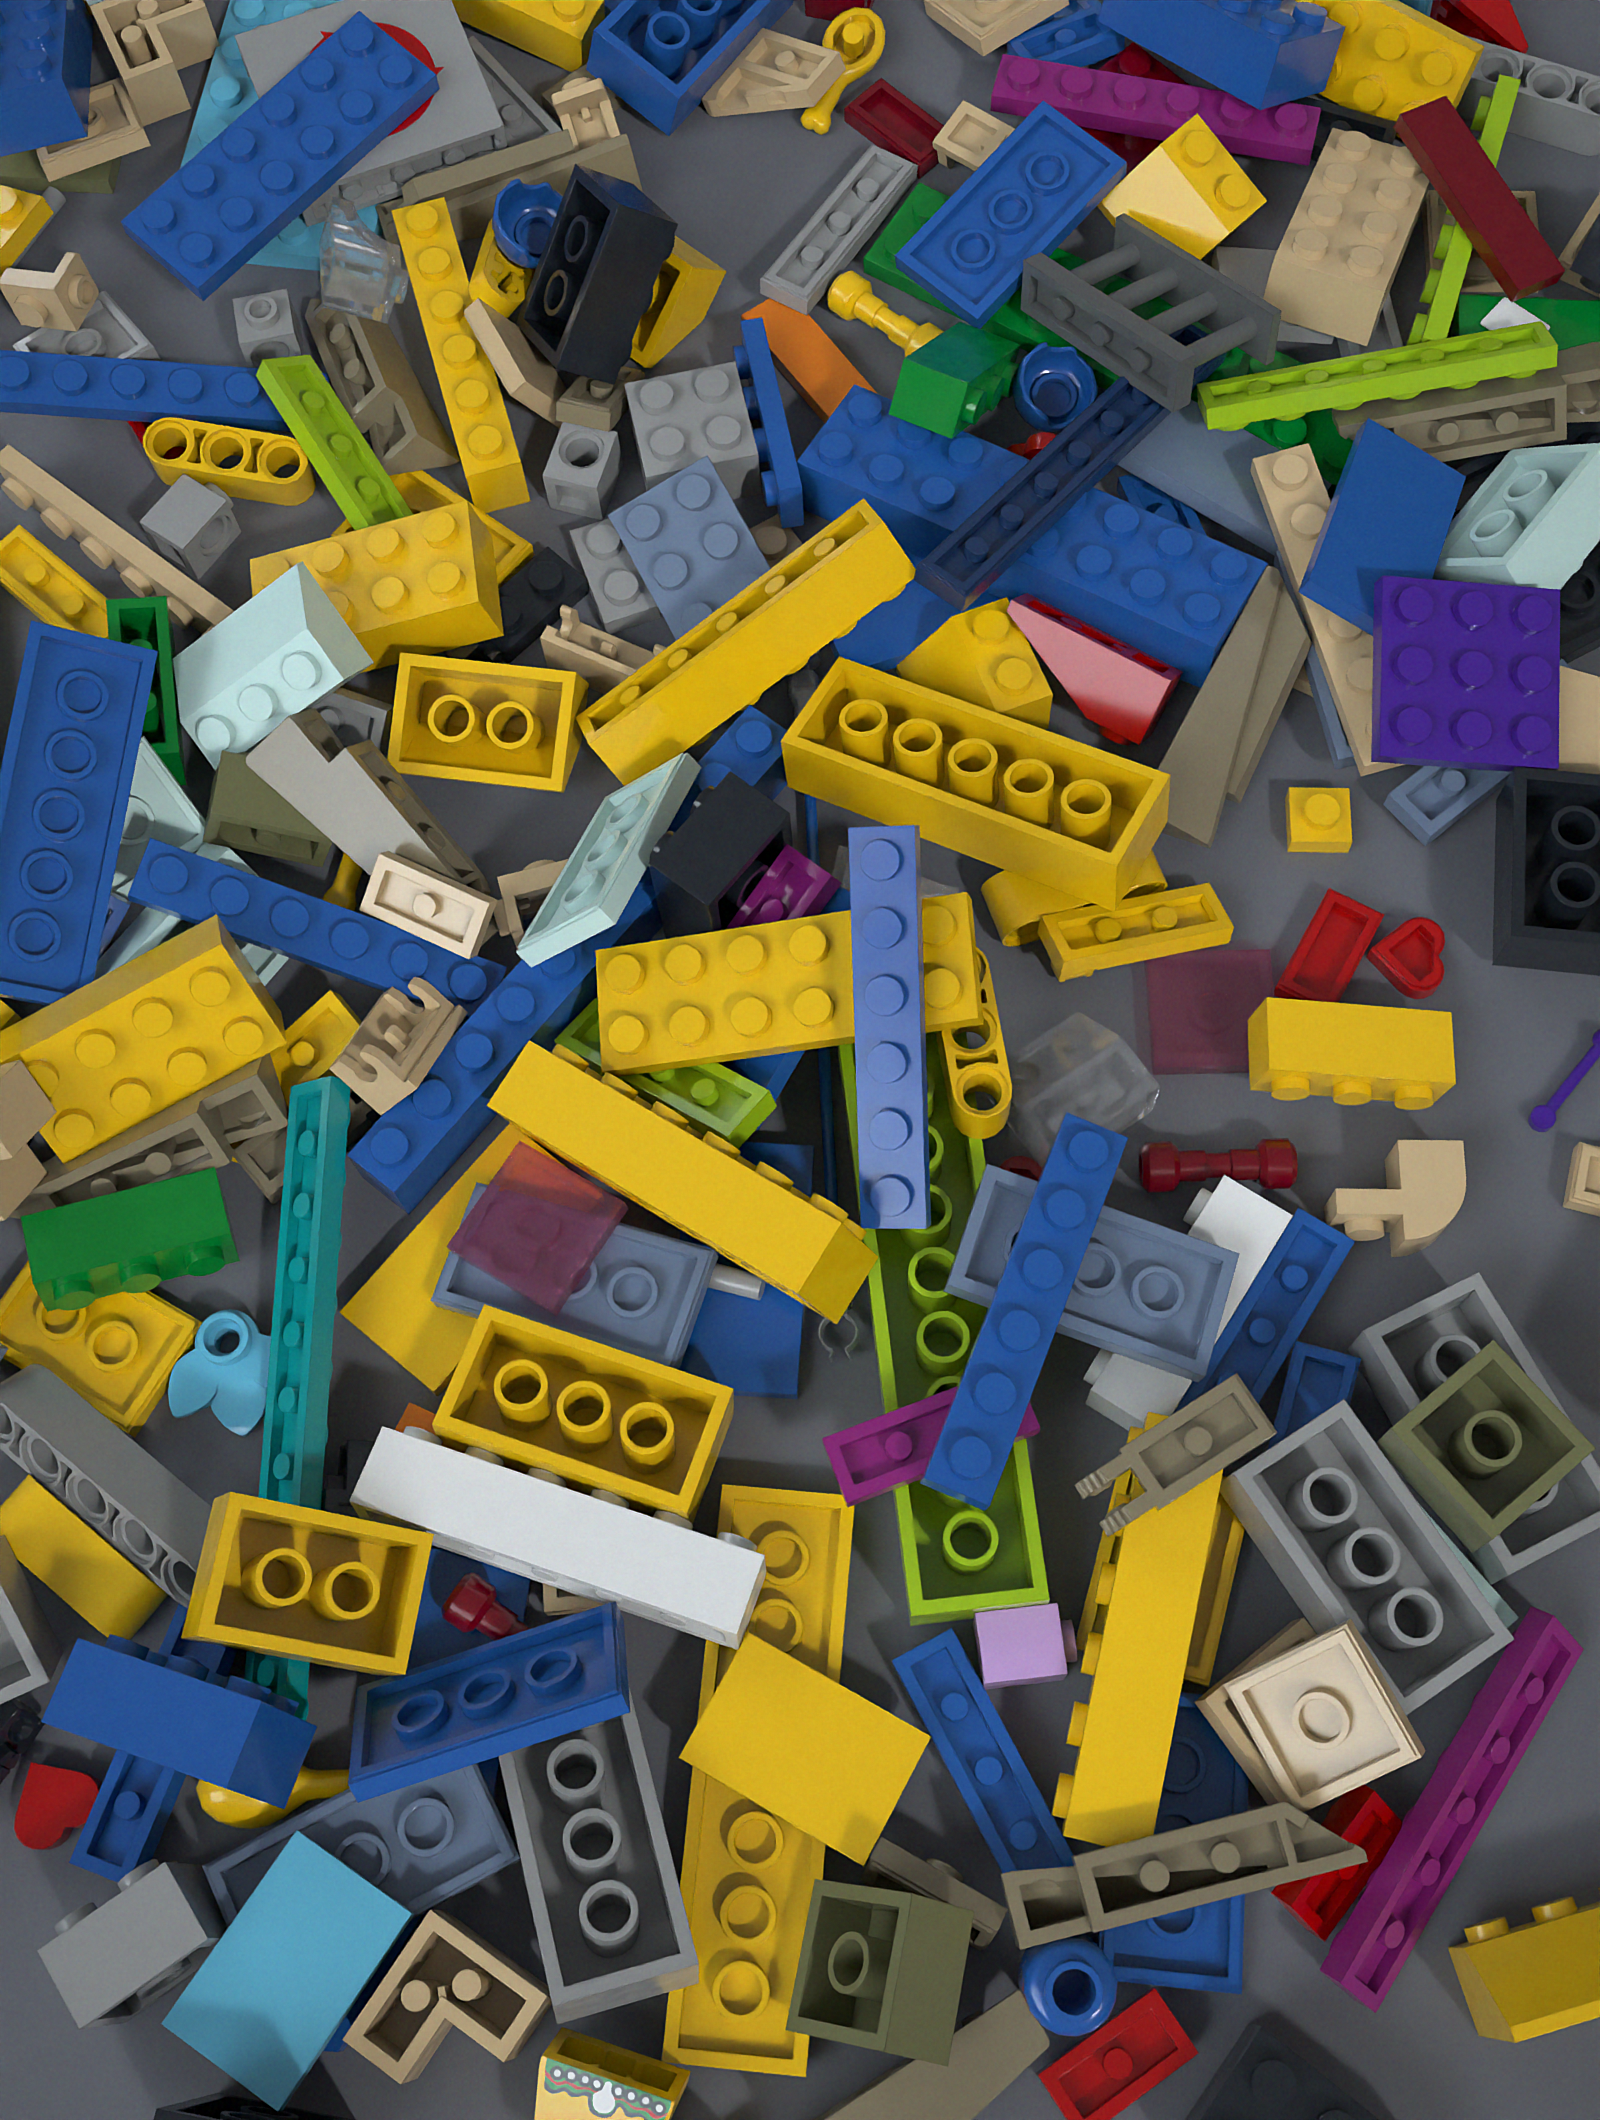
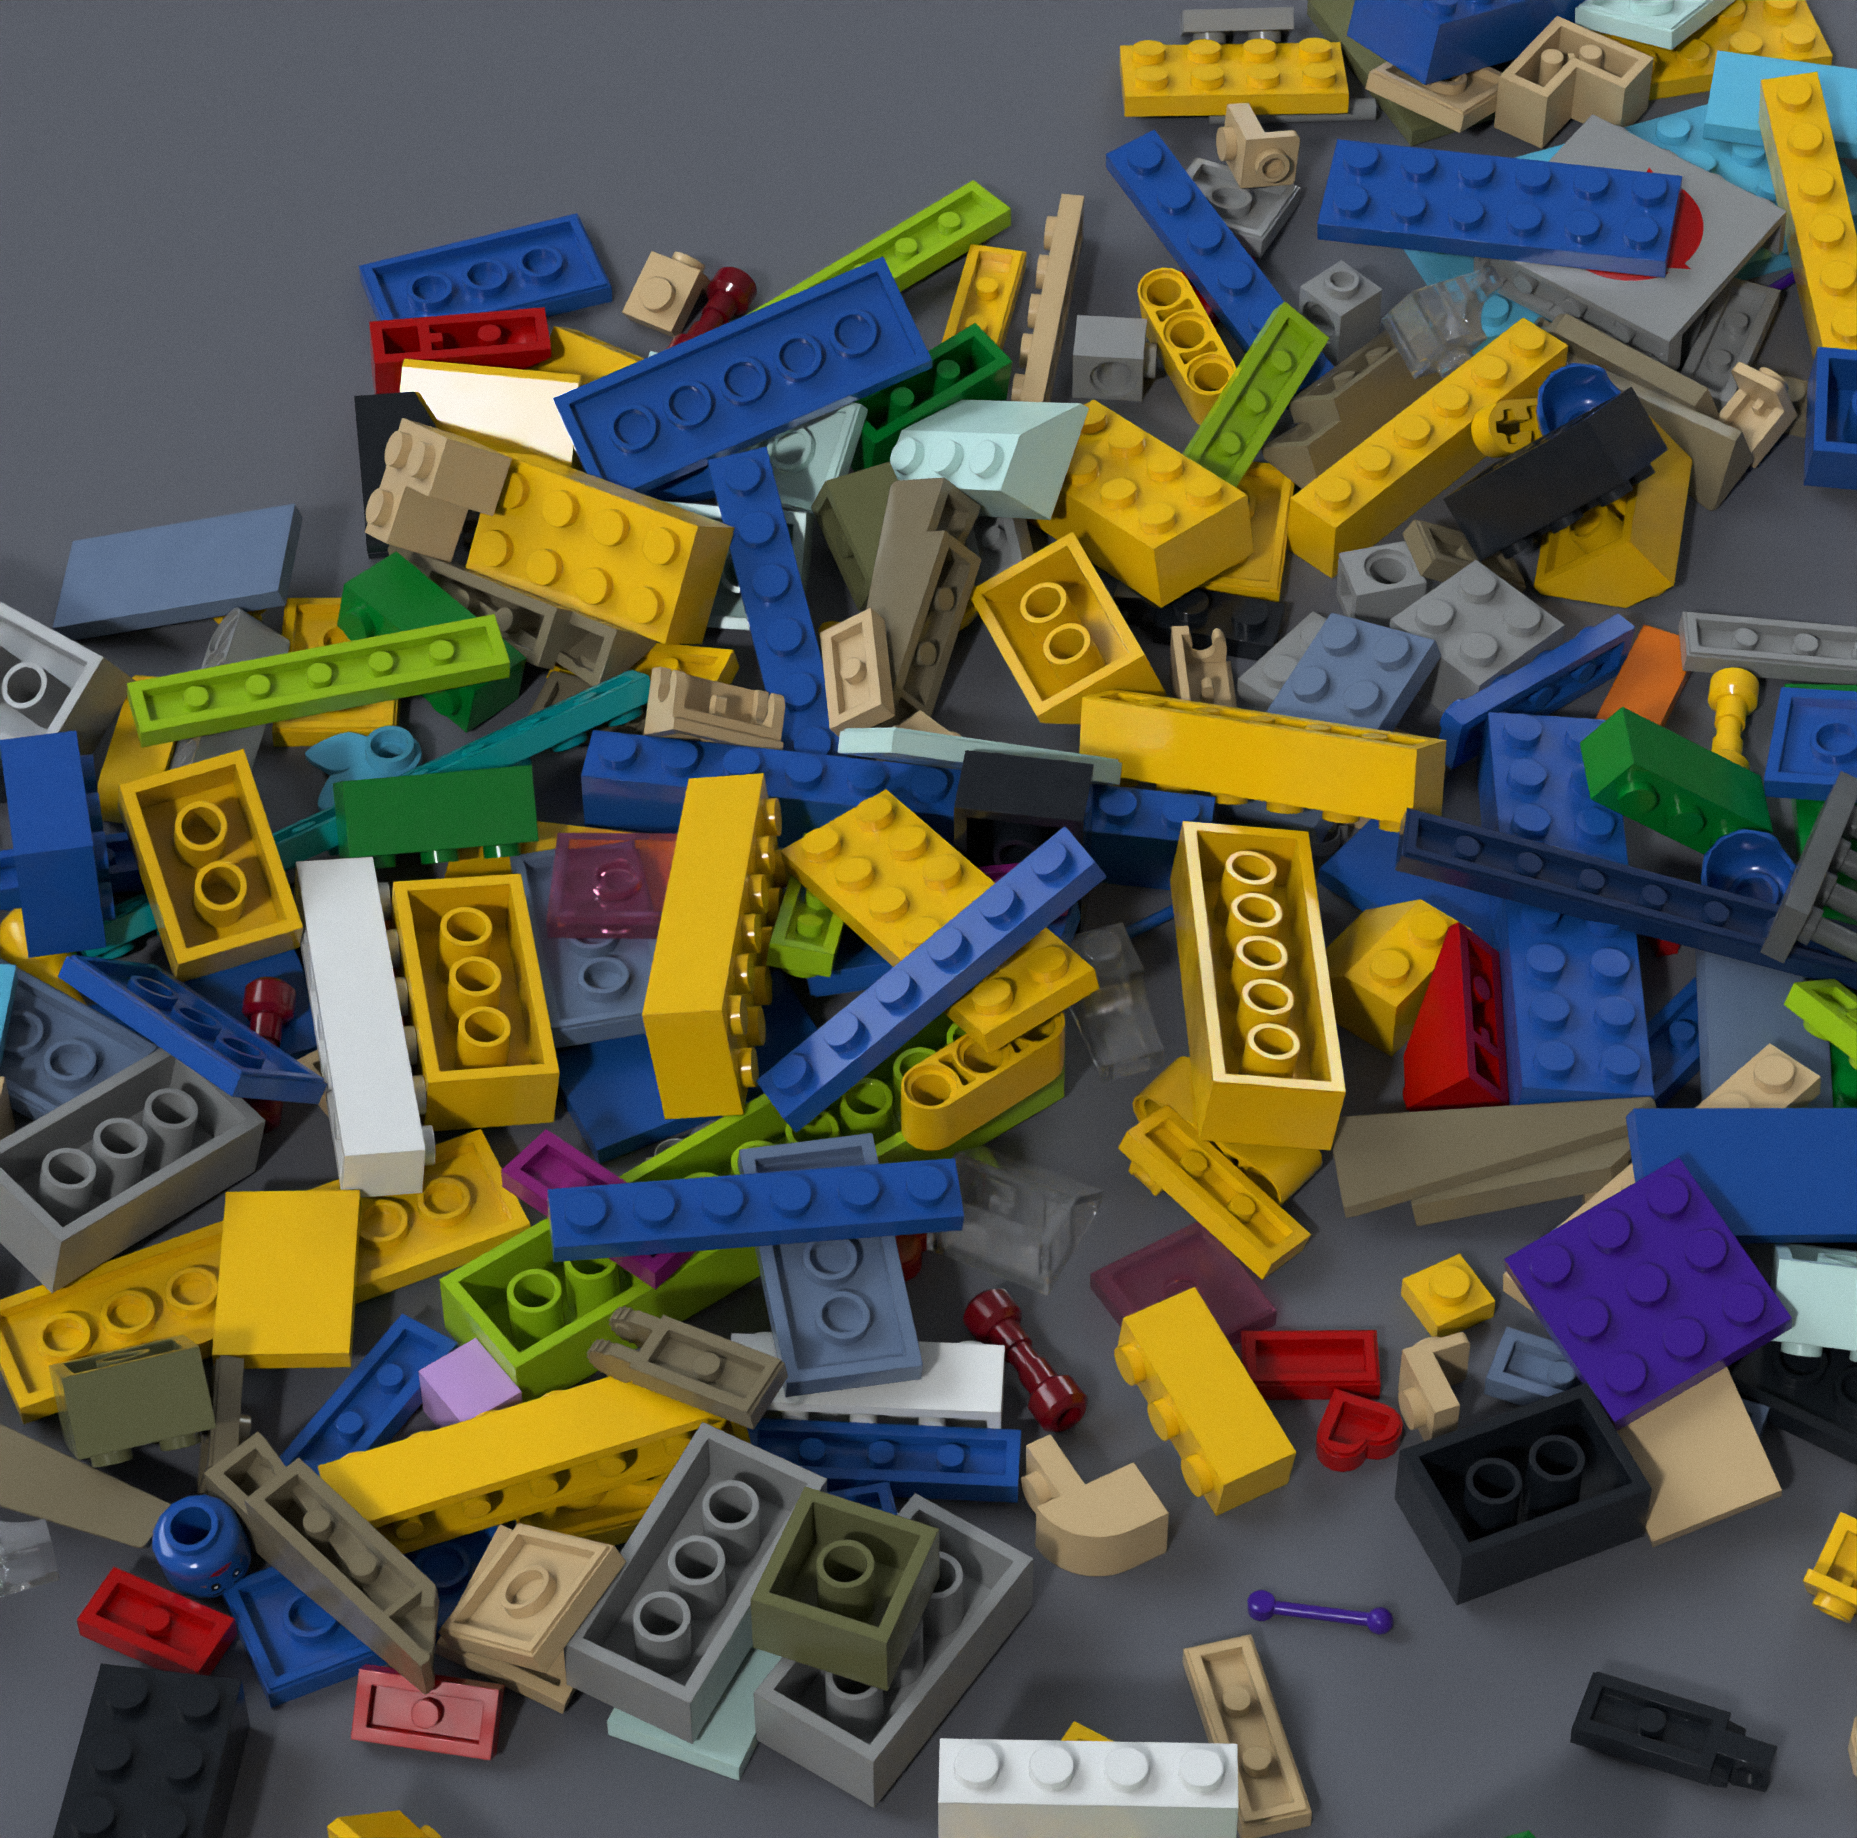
camera: 55 degrees right, 20 degrees down
(141, 1375) = (317, 680): none -> lime plate
(361, 1343) = (436, 815): none -> green brick
(517, 361) = (1434, 467): tan tile -> none
(1416, 885) = (1426, 1383): none -> tan bracket
(1451, 1810) = (530, 1779): magenta plate -> none

